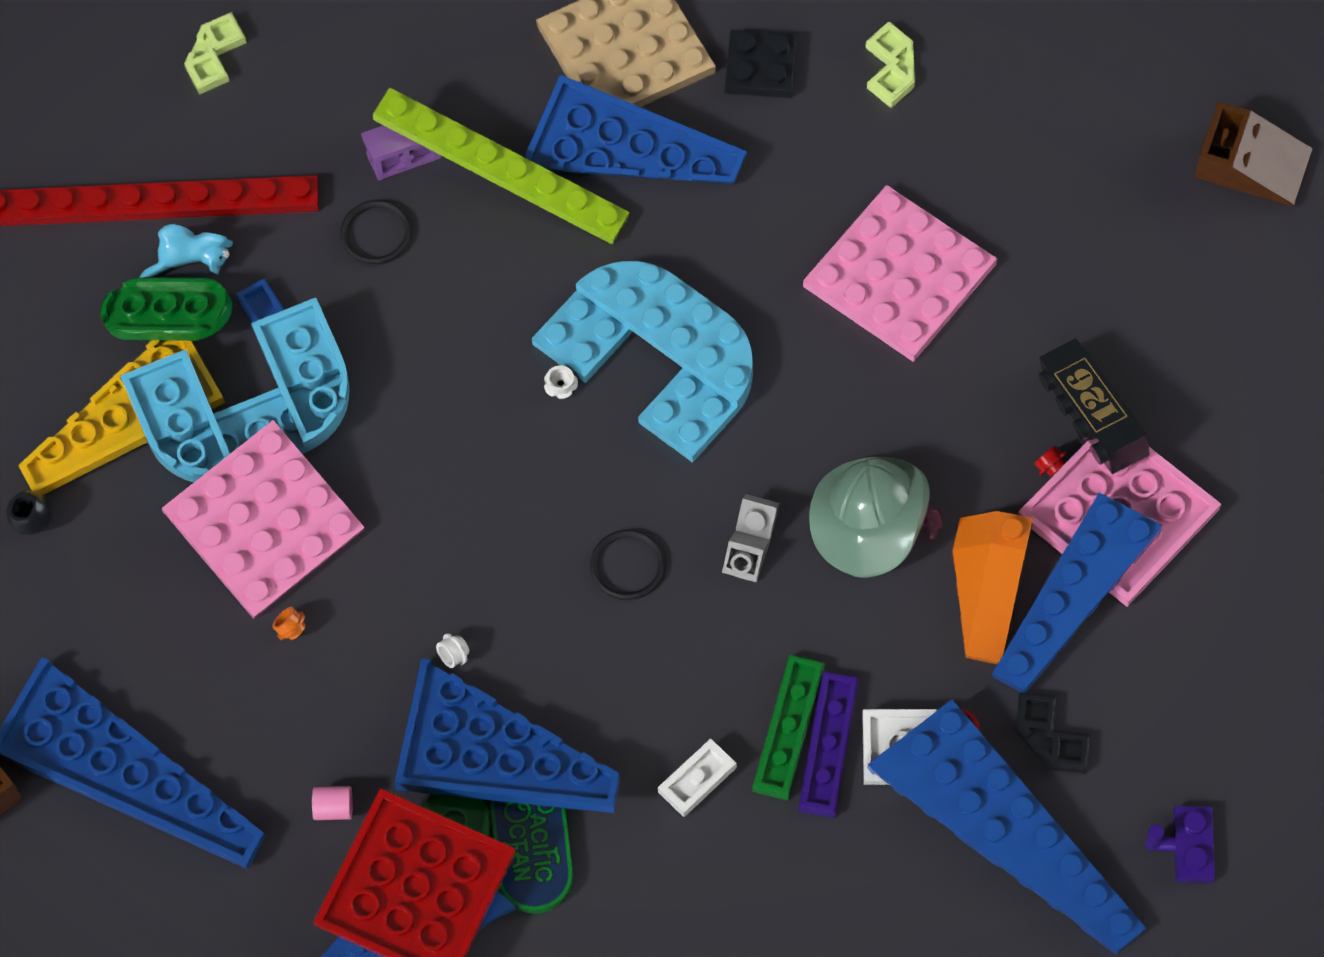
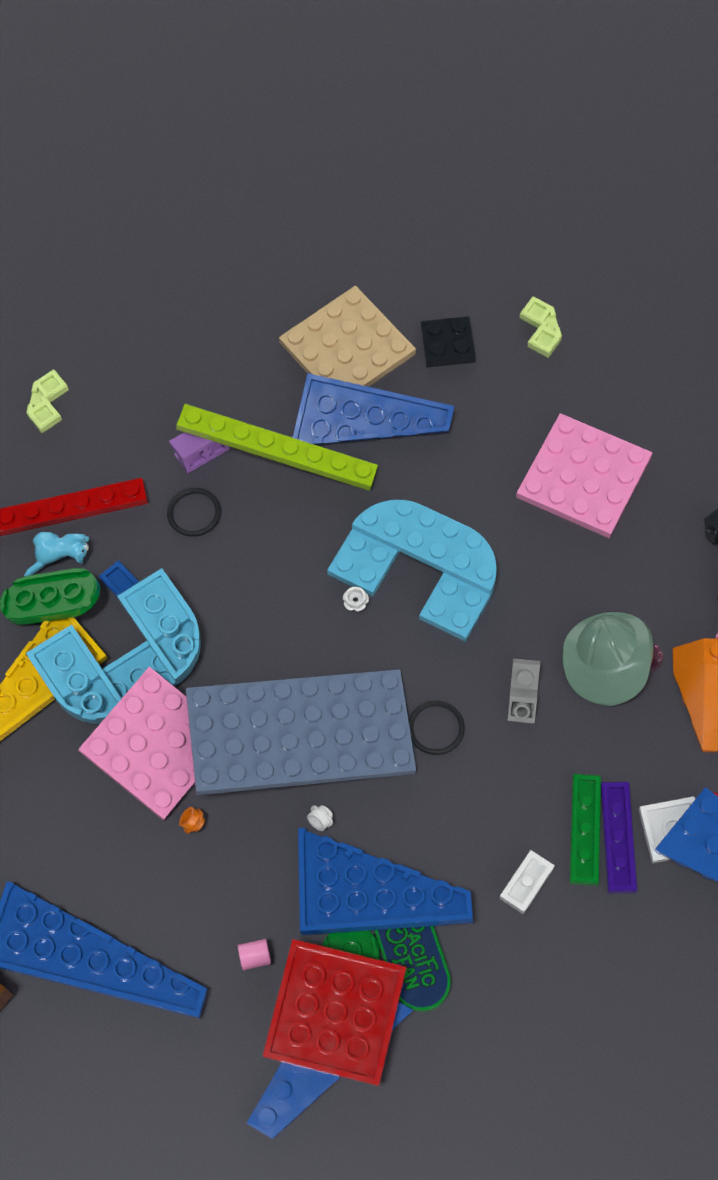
camera: 10 degrees left, 0 degrees up
(449, 537) = (299, 731): none -> sand blue plate

